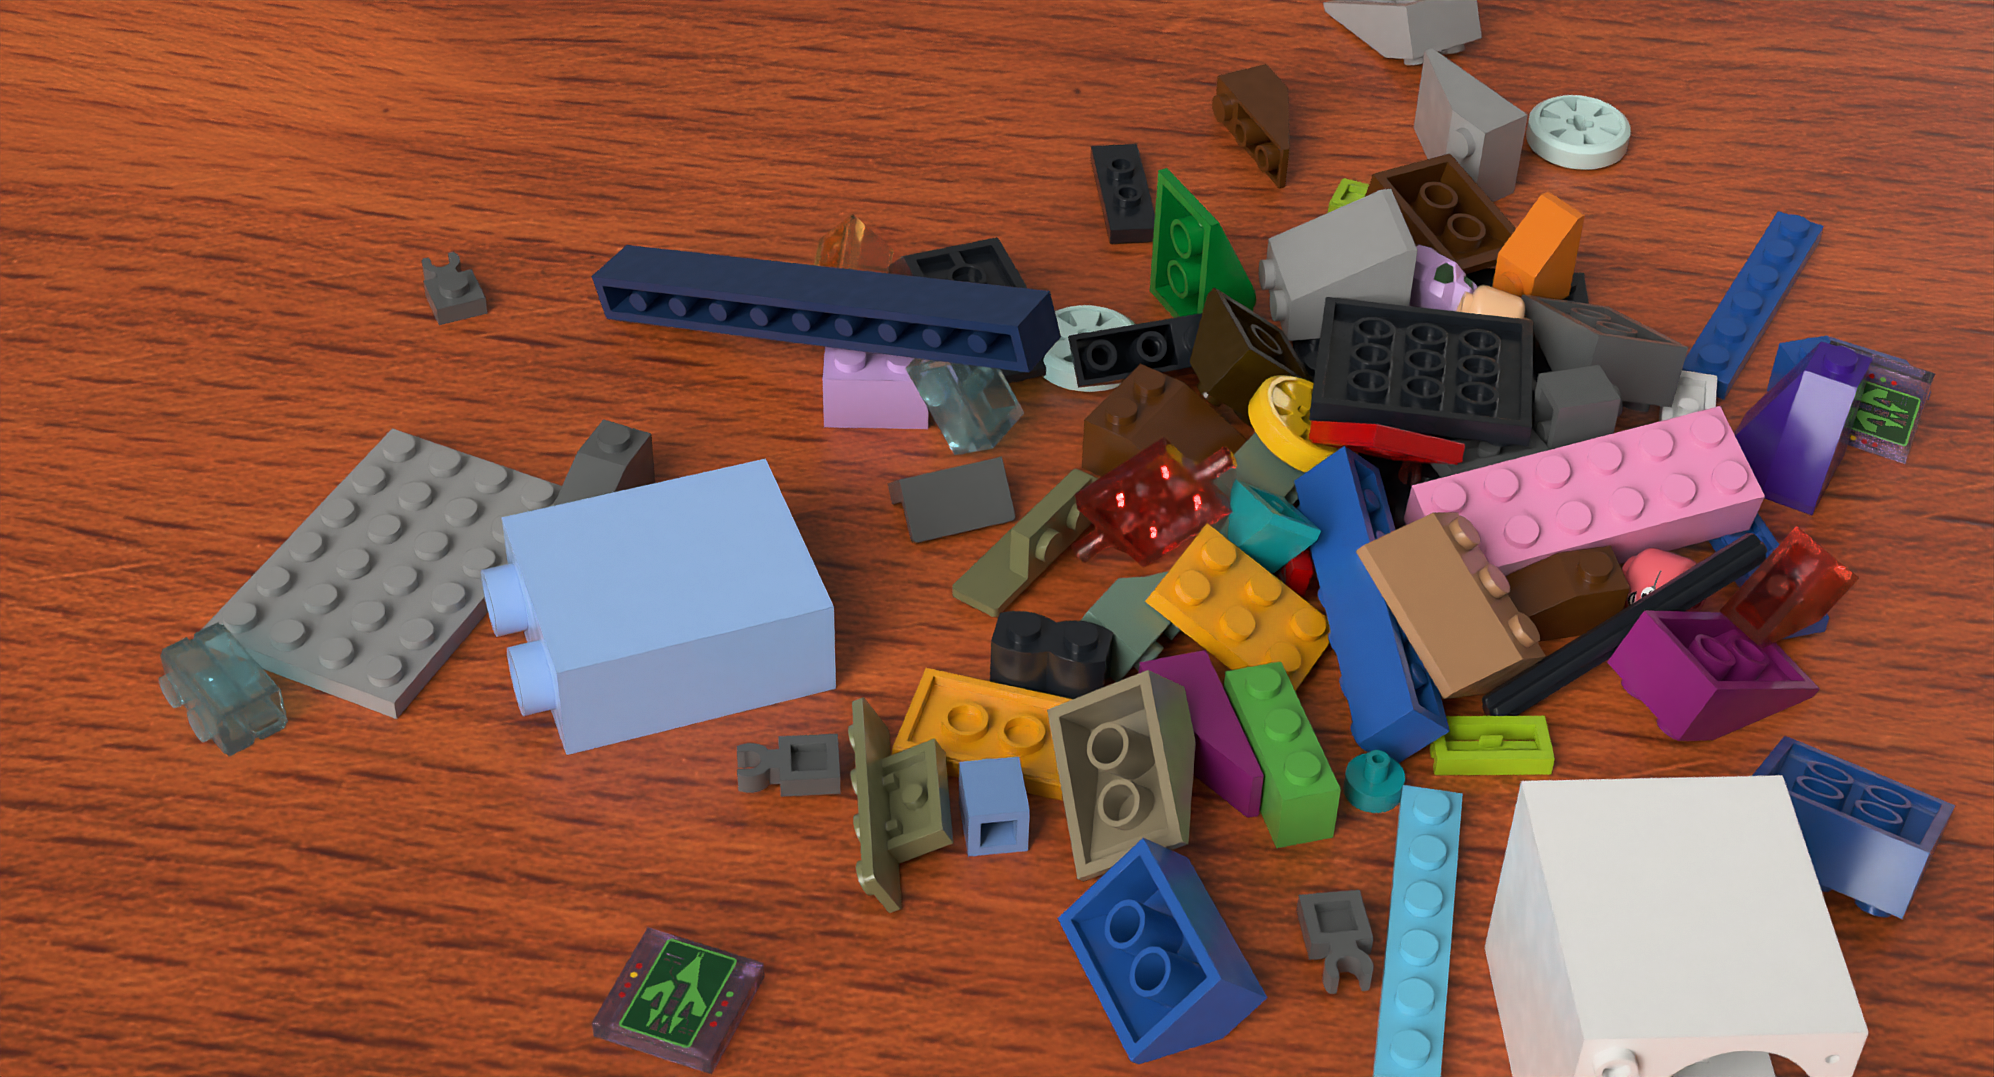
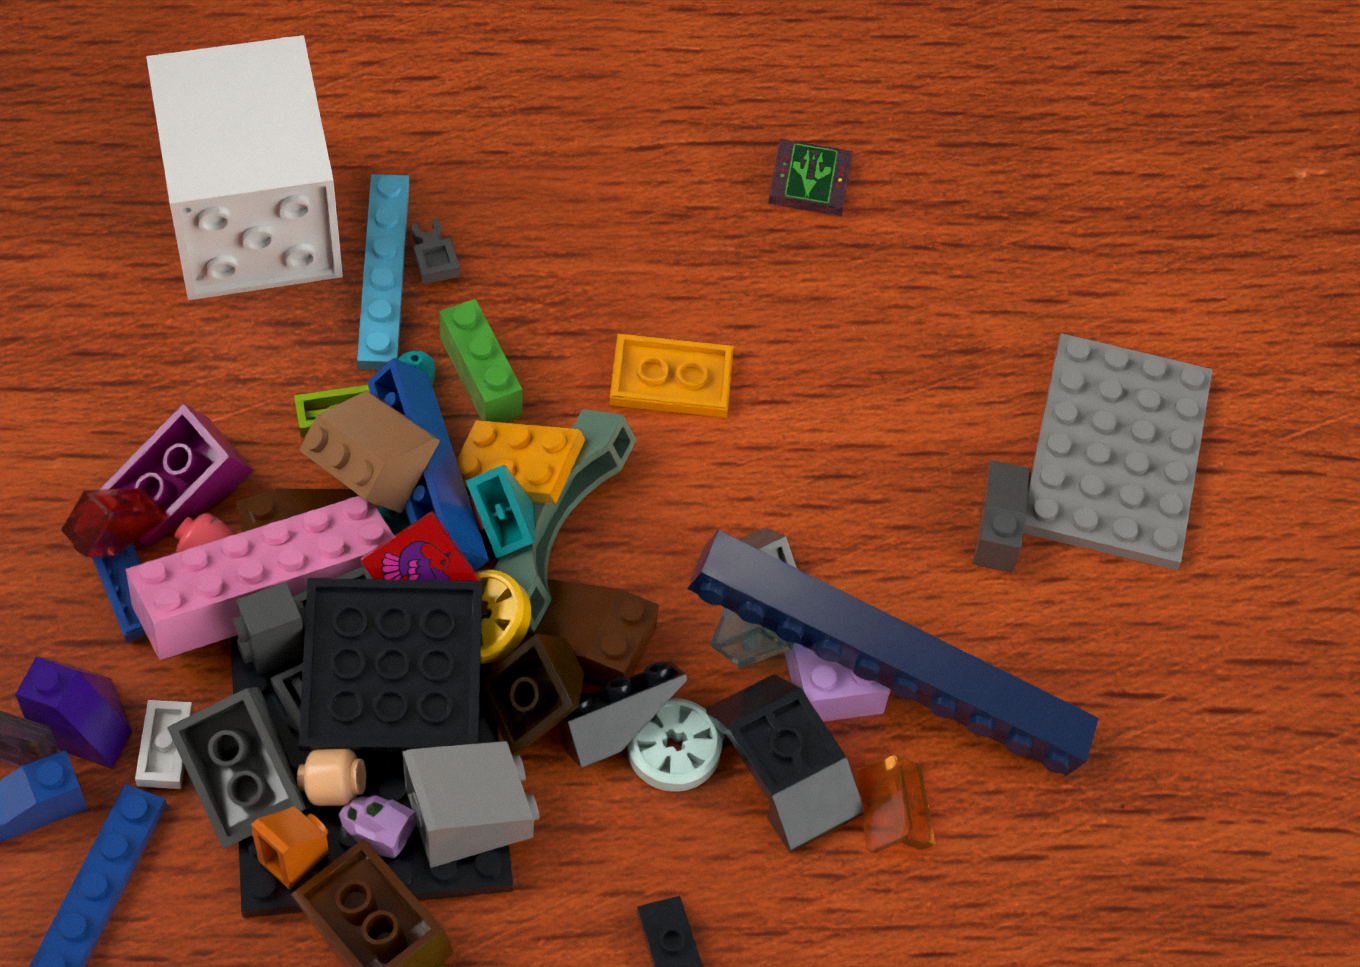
camera: 165 degrees right, 15 degrees up
(222, 690) = (1170, 322): clear light blue brick -> none
(452, 292) = (1213, 728): dark grey plate -> none
(661, 607) = (913, 401): light blue brick -> none
(800, 765) = (789, 325): dark grey plate -> none
(899, 804) = (721, 303): olive bracket -> none
(993, 806) = (658, 306): medium blue brick -> none
(1026, 549) = (672, 530): olive bracket -> none
(1050, 656) = (652, 412): black brick -> none
(1124, 768) = (578, 321): dark tan slope -> none
(1153, 503) = (590, 515): clear red plate -> none
(1160, 955) = (536, 224): blue slope -> none
(1192, 253) = (590, 803): green slope -> none
(1221, 748) = (548, 390): magenta slope -> none
(1602, 640) = (218, 492): black axle -> none
(1859, 826) = (102, 371): blue slope -> none

